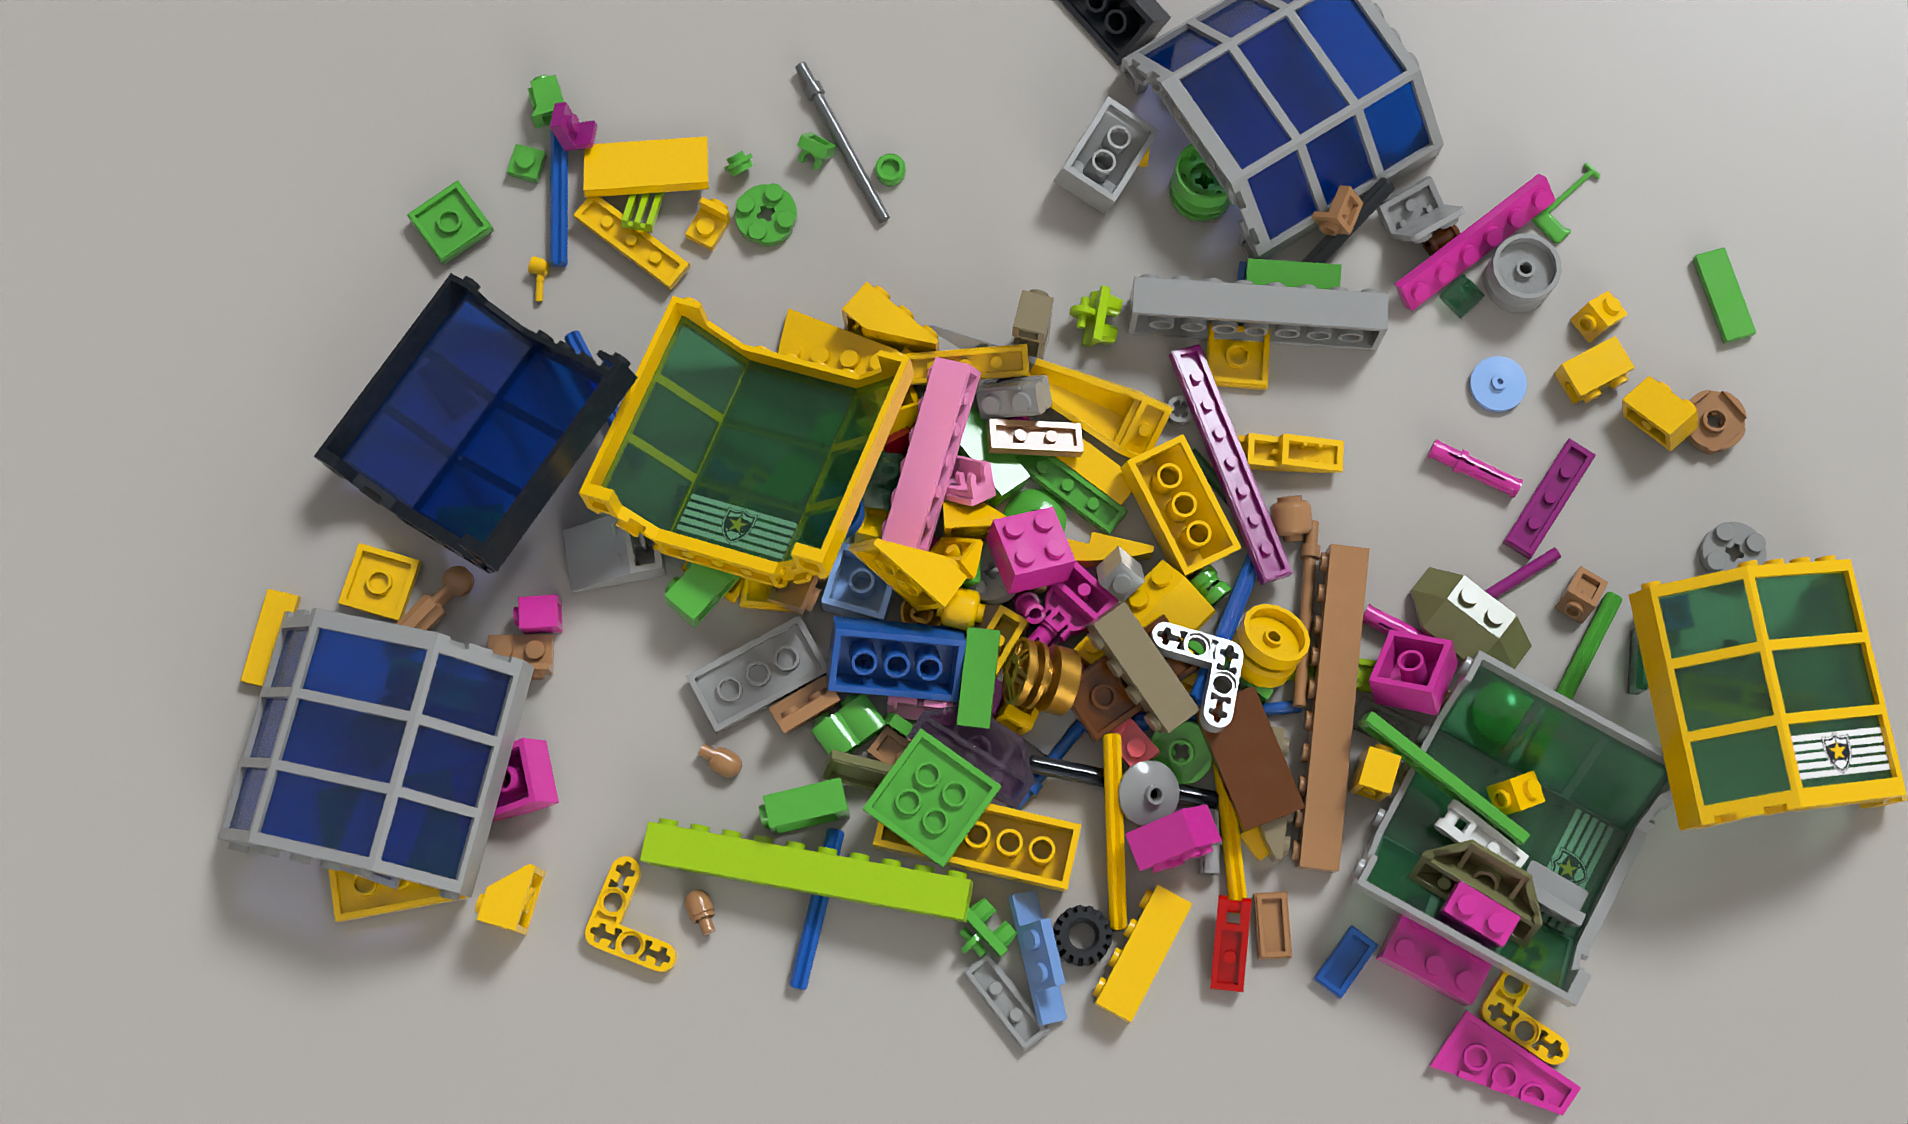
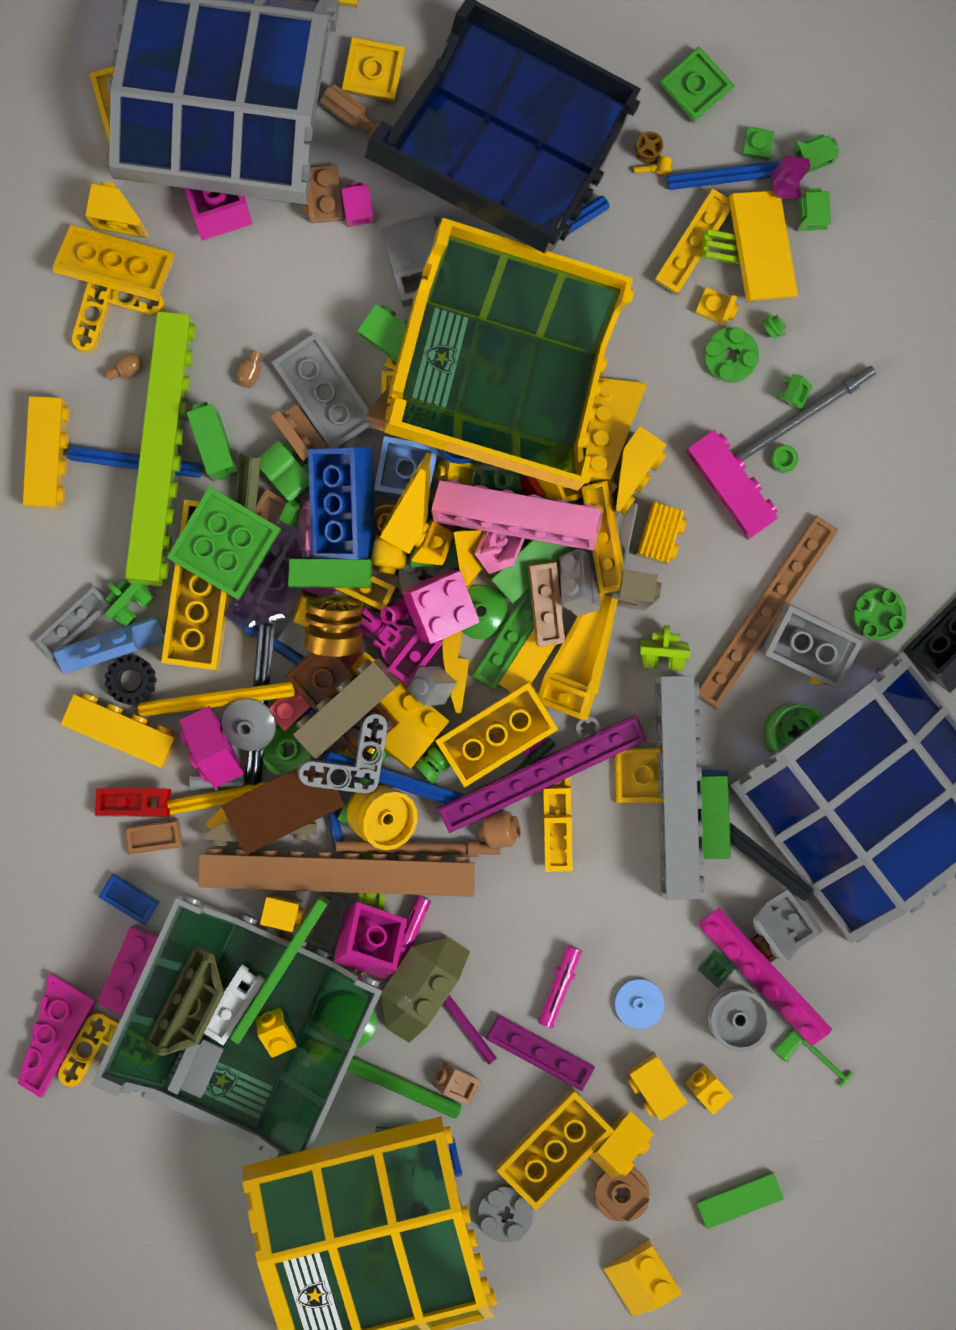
camera: 85 degrees right, 10 degrees up
(511, 274) = (649, 141): none -> pearl gold wheel
(572, 910) = (113, 262): none -> yellow plate
(612, 108) = (814, 210): none -> bright green window
(795, 1016) = (45, 453): none -> yellow brick
(915, 225) = (731, 484): none -> dark pink brick
(963, 308) = (660, 533): none -> yellow brick
(1059, 203) = (765, 611): none -> medium nougat tile
(1075, 84) = (879, 614): none -> bright green dish
(1342, 213) = (774, 855): medium nougat bracket -> none
(1479, 914) = (161, 1001): dark pink brick -> none
(1661, 487) = (554, 1148): none -> yellow brick
(1811, 406) = (642, 1279): none -> yellow slope

